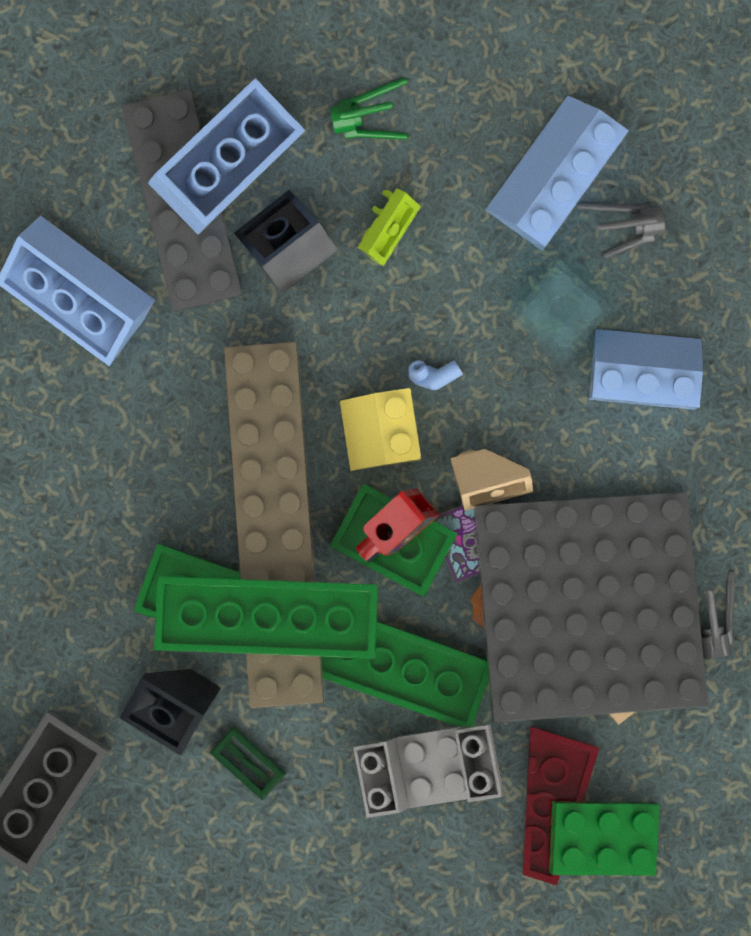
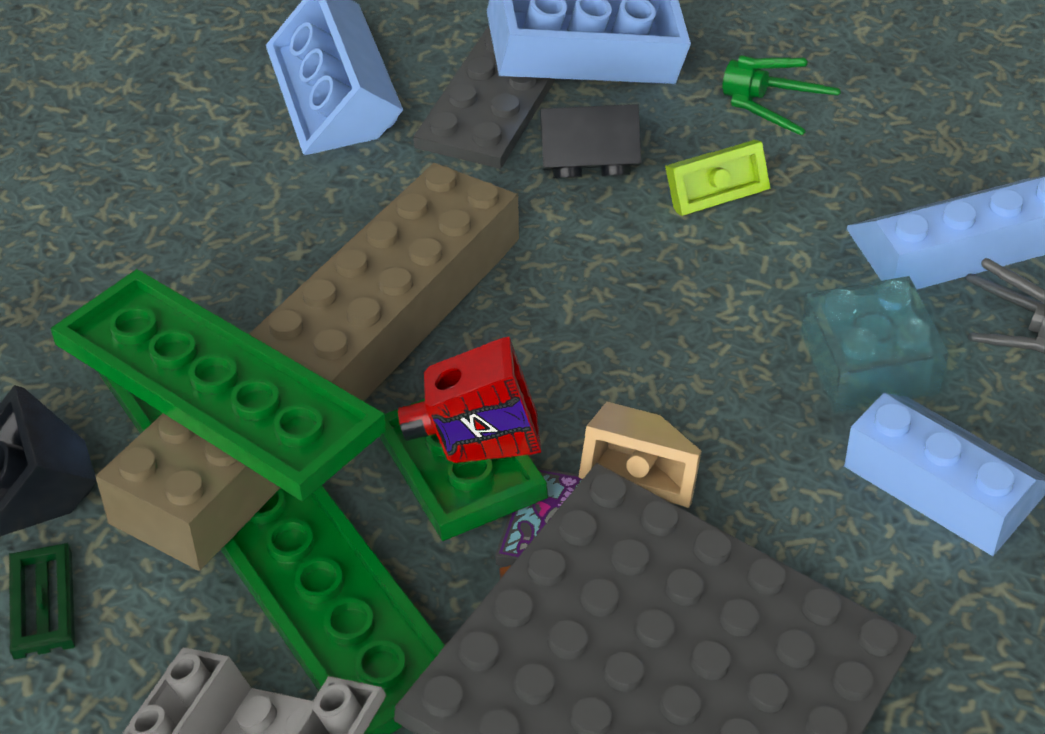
camera: 35 degrees right, 40 degrees down
(380, 429) = (562, 341): light yellow slope -> none
(431, 377) = (654, 337): light blue arm -> none

